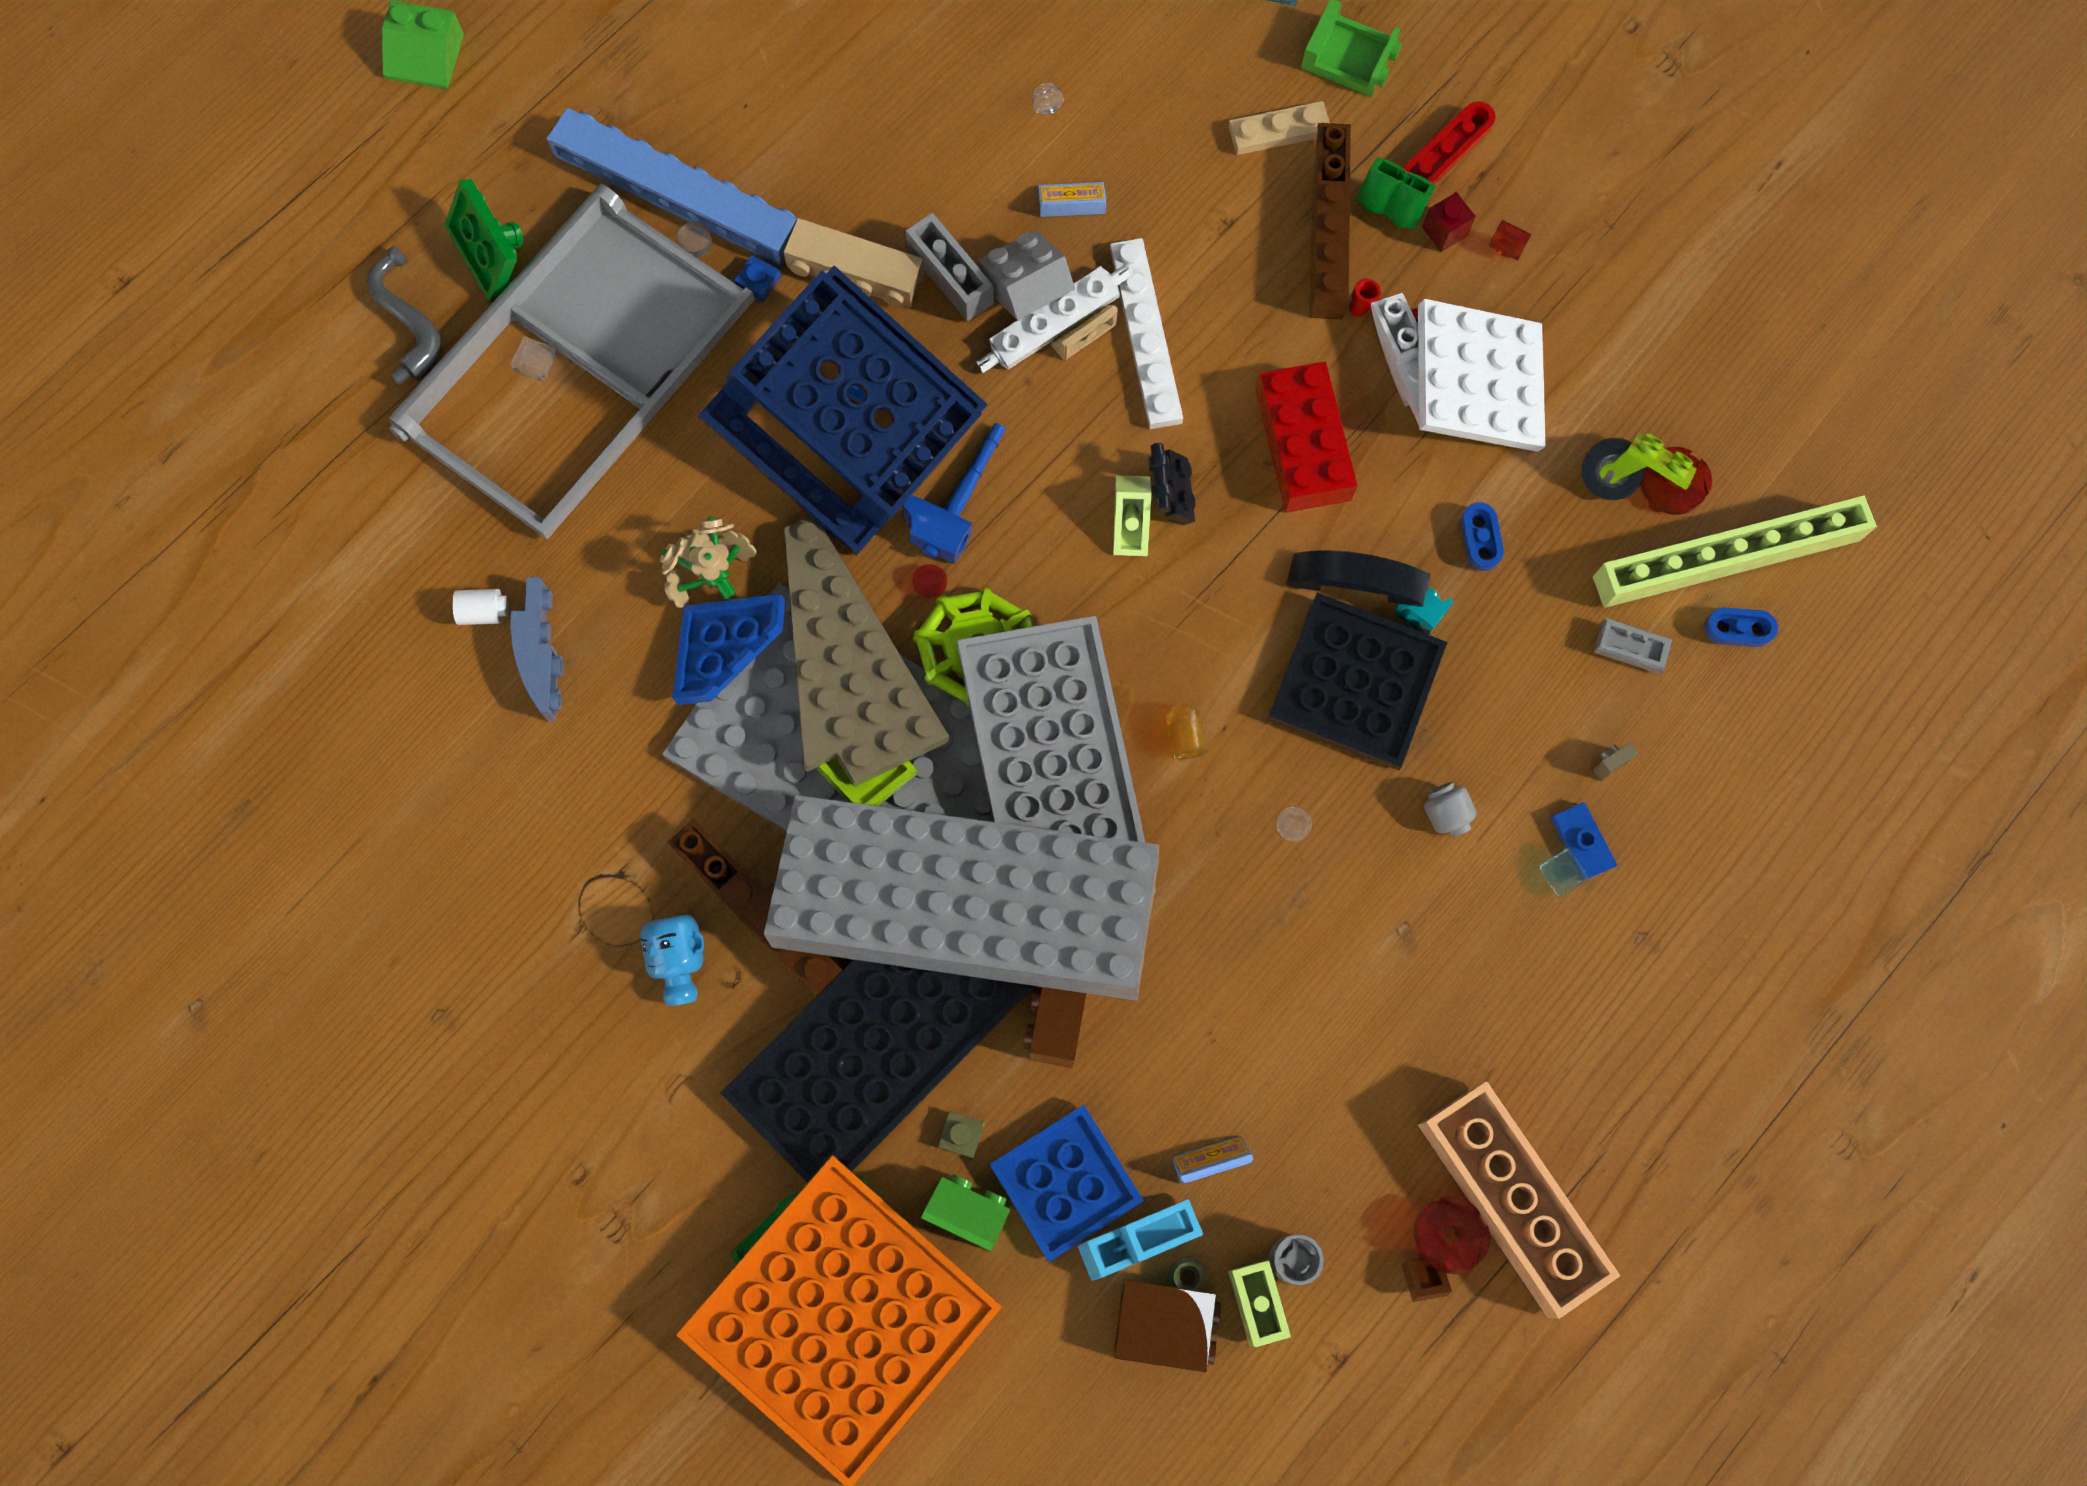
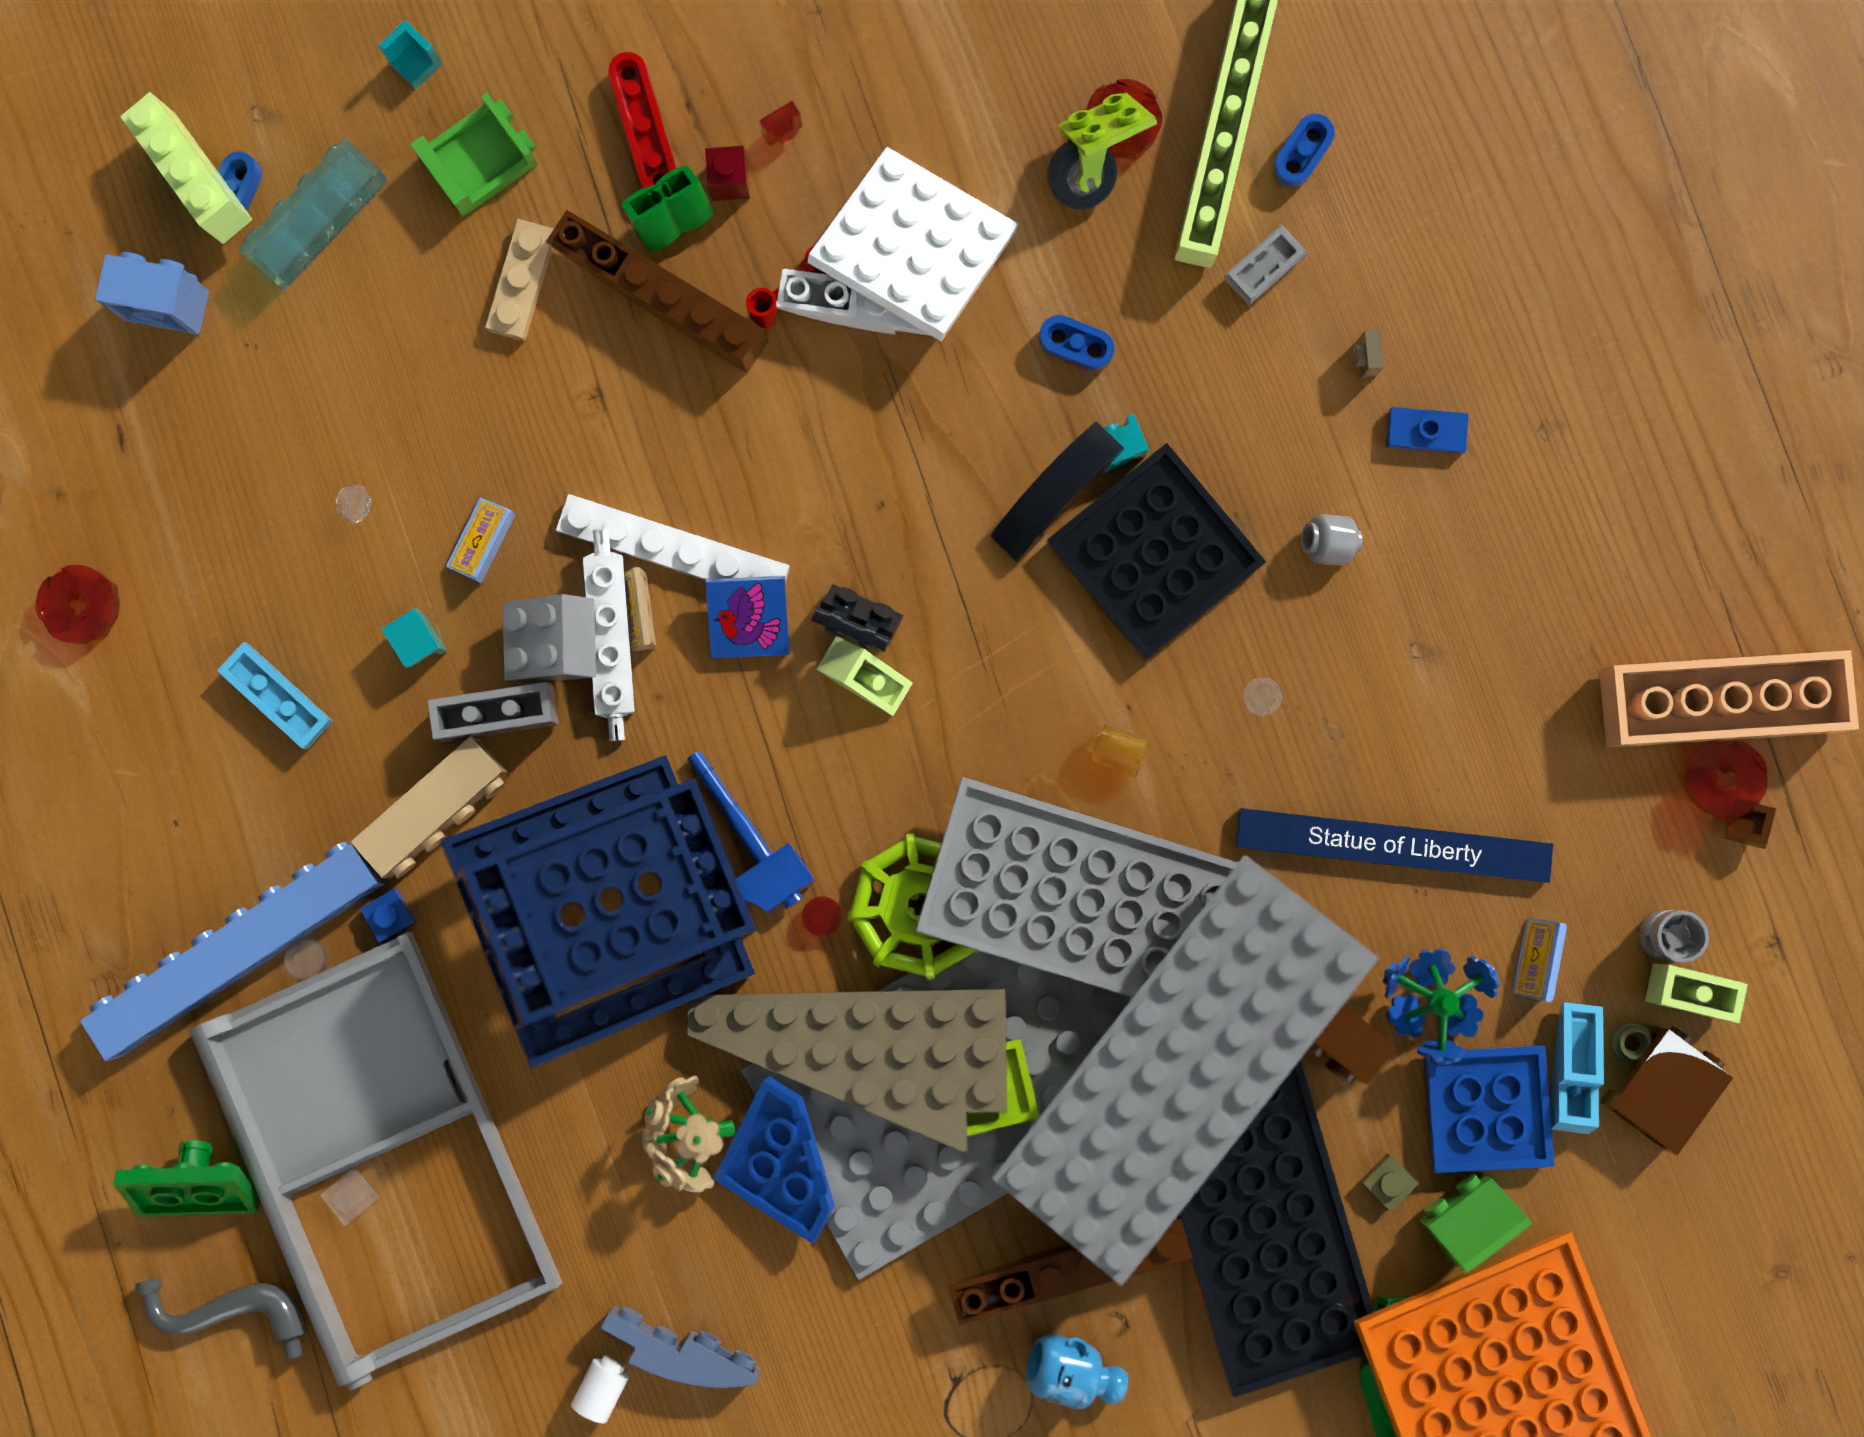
camera: 60 degrees left, 10 degrees up
(875, 120) = (275, 695): none -> medium azure plate
(974, 186) = (413, 638): none -> teal panel
(1126, 407) = (747, 616): none -> tile
(1151, 1078) = (1453, 1013): none -> blue plant
(1237, 994) = (1394, 845): none -> dark blue tile
(1306, 437) = (878, 454): red brick -> none
(1563, 872) = (1449, 468): clear light blue plate -> none

